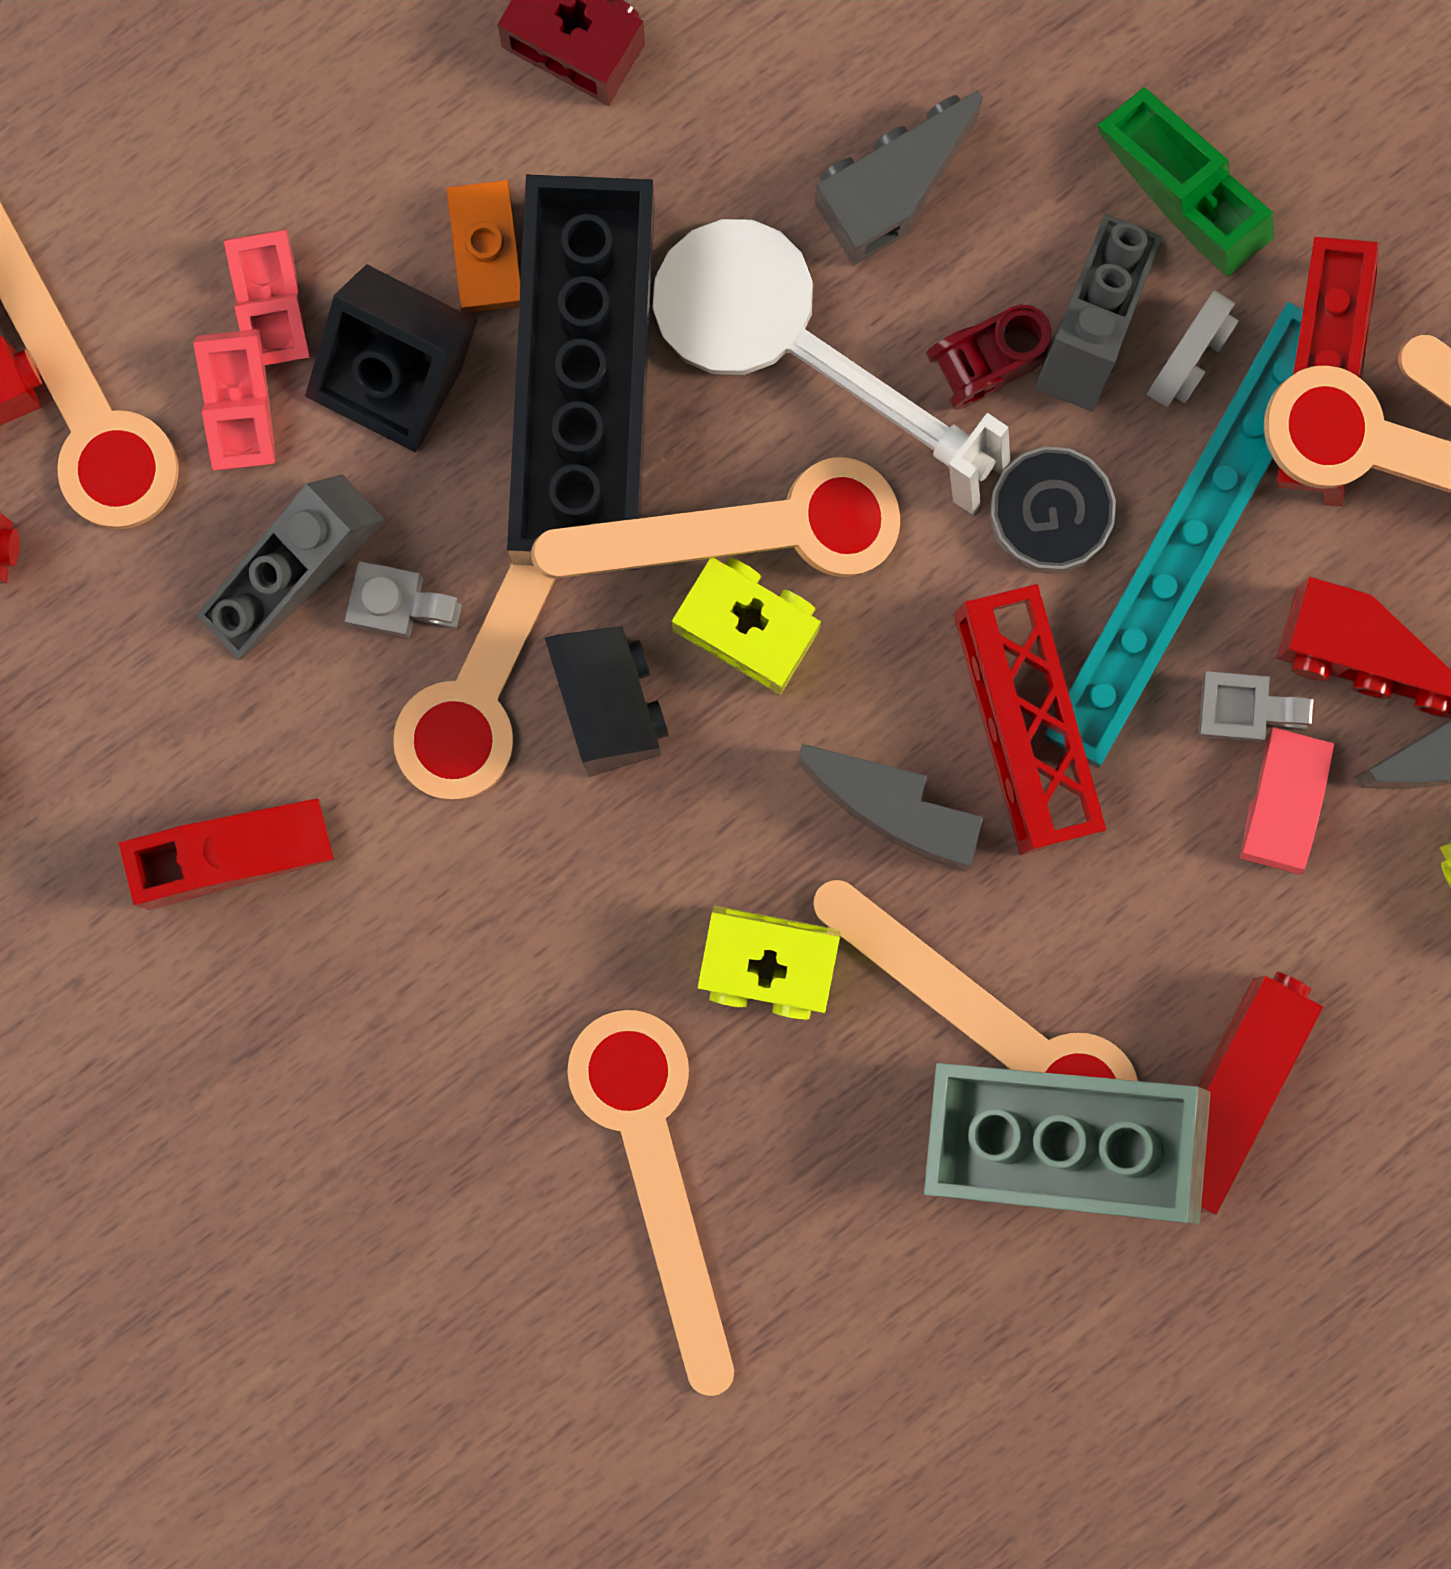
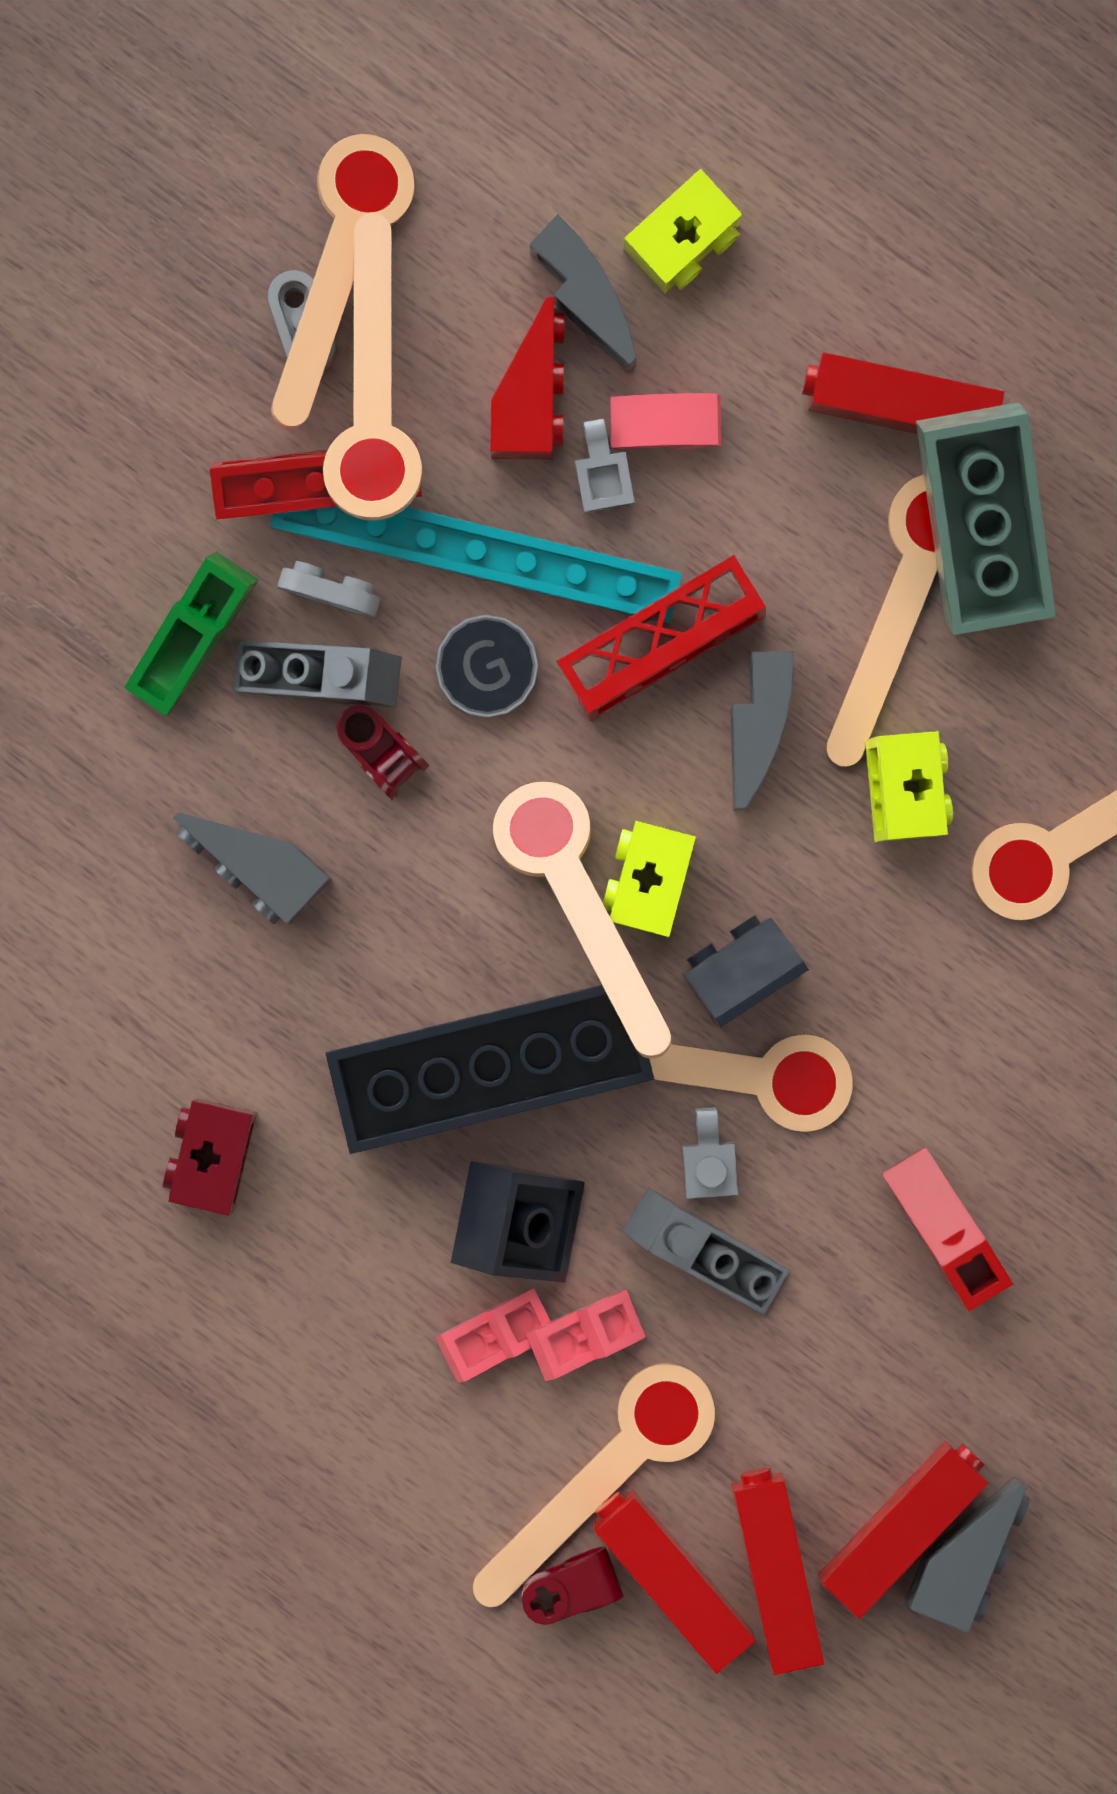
camera: 105 degrees left, 5 degrees up
(484, 246) = (403, 1175): orange plate -> none
(741, 300) = (388, 958): white piece -> none

